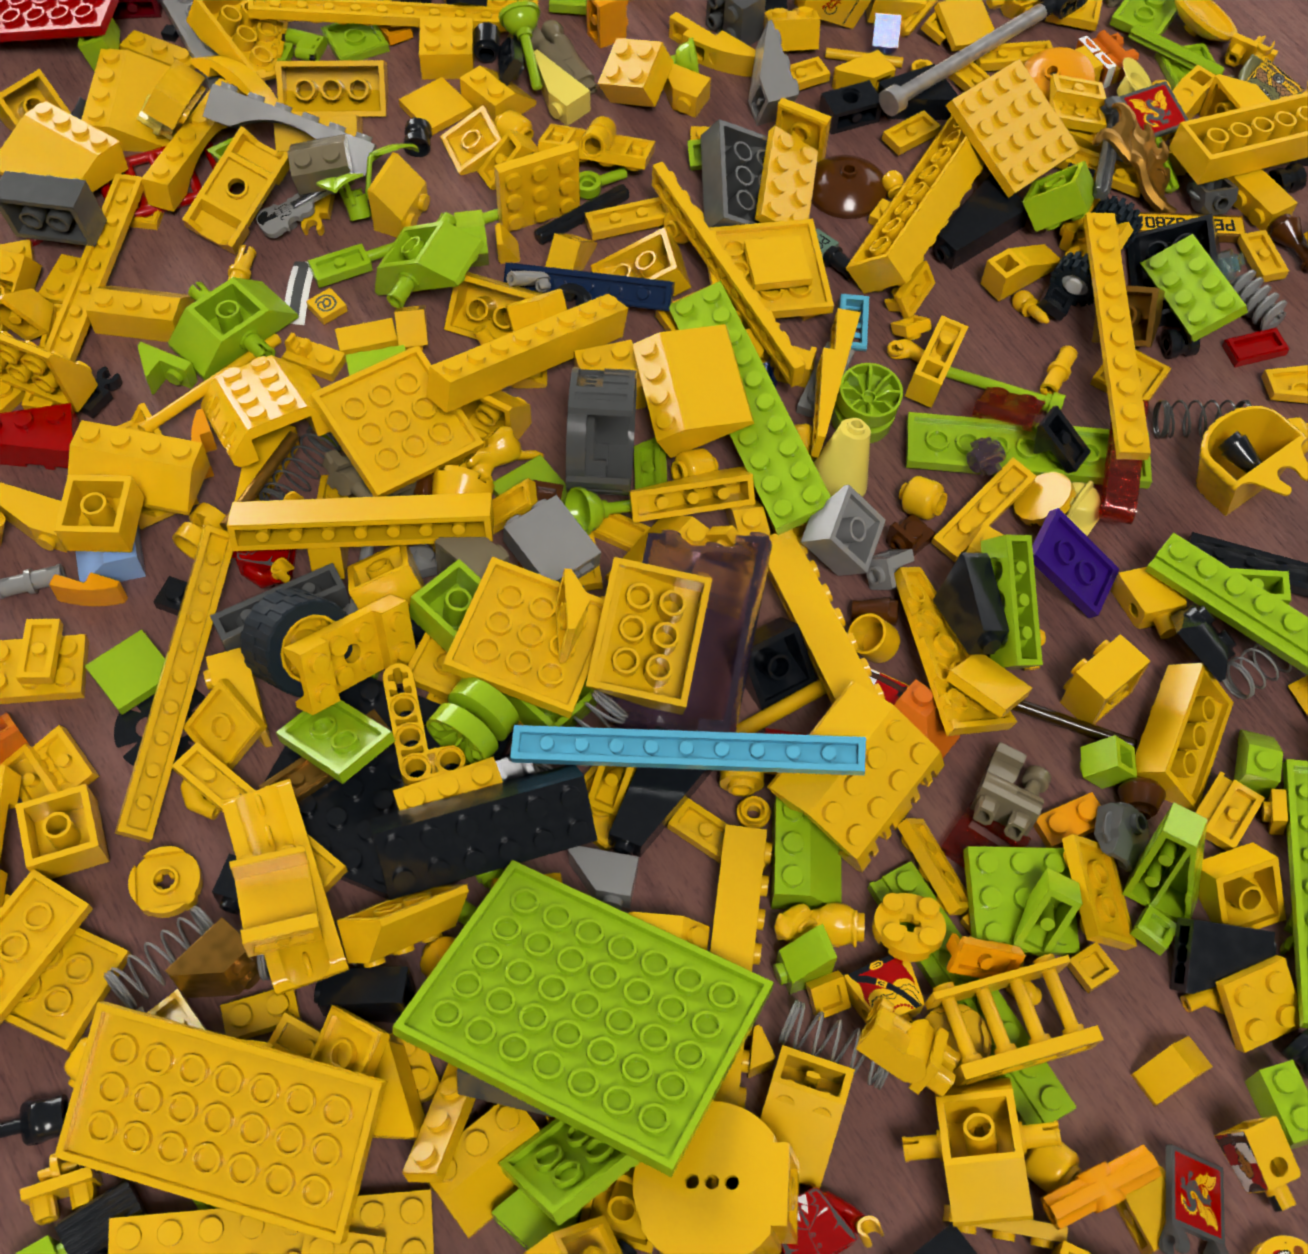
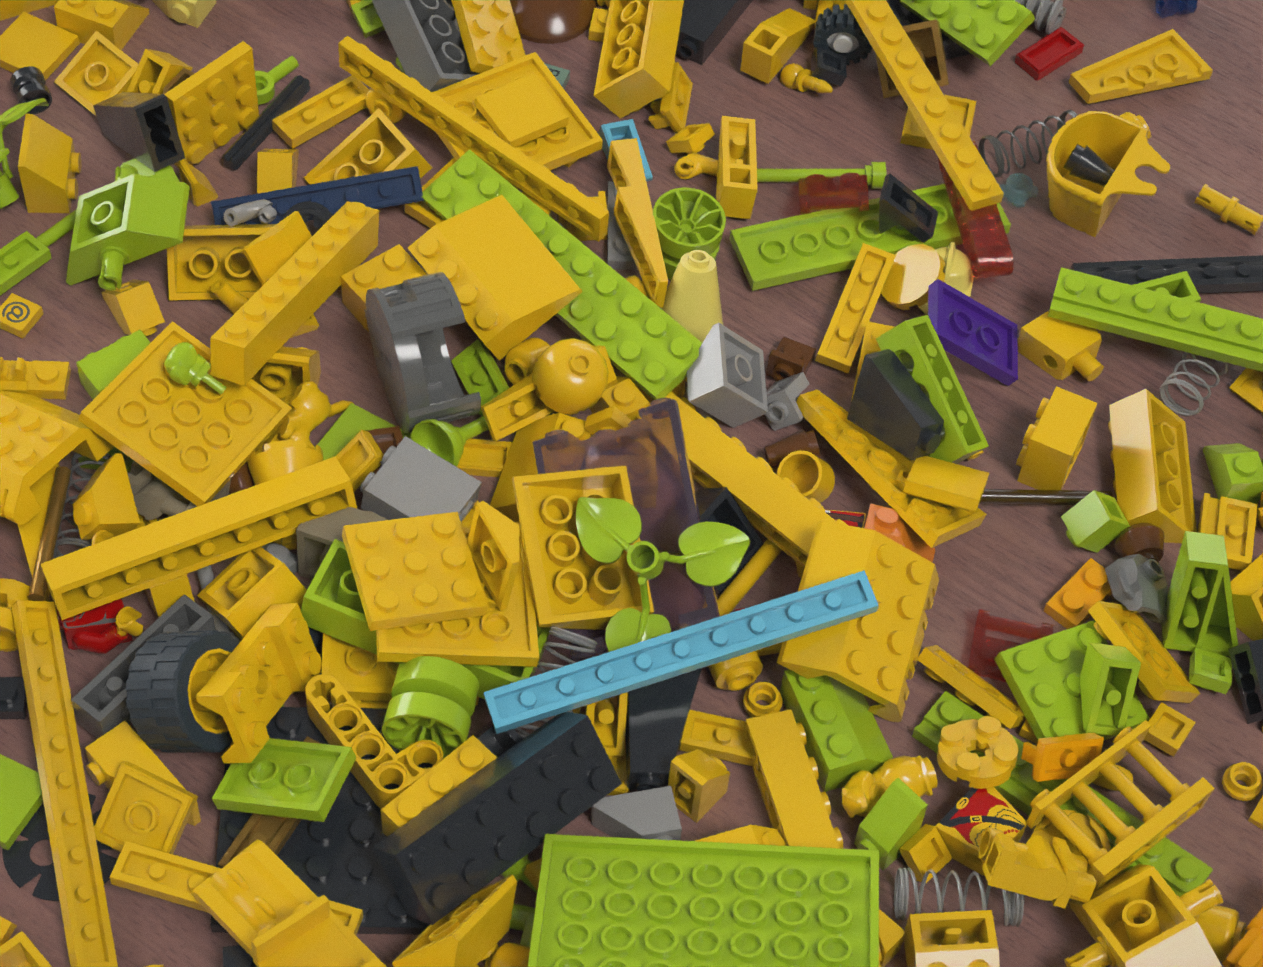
camera: 25 degrees left, 5 degrees down
(197, 803) = (145, 910): yellow arm -> none
(308, 471) = (106, 501): none -> yellow slope
(366, 336) = (83, 336): yellow tile -> none
(409, 383) = (187, 366): none -> lime piece
(477, 190) = (141, 127): none -> black slope
(503, 606) = (414, 571): none -> yellow plate
(515, 121) = (136, 40): yellow head -> none
(601, 144) = (266, 38): yellow plate -> none
(664, 861) = (697, 782): none -> yellow slope
(670, 626) = (610, 526): none -> lime plant
(711, 489) = (570, 376): none -> yellow cylinder
(838, 260) = (580, 90): black pin -> none
(923, 498) = (787, 315): yellow head -> none
(985, 456) = (836, 250): gear -> none
(1003, 800) = (1013, 596): dark tan hips -> none
(1059, 370) = (864, 138): yellow pin -> none
(1144, 1030) = (1247, 773): none -> yellow plate
(1173, 454) = (1019, 189): none -> clear light blue plate
(1176, 343) = (971, 72): black wheel -> none
(1203, 638) = (1141, 369): black slope -> none

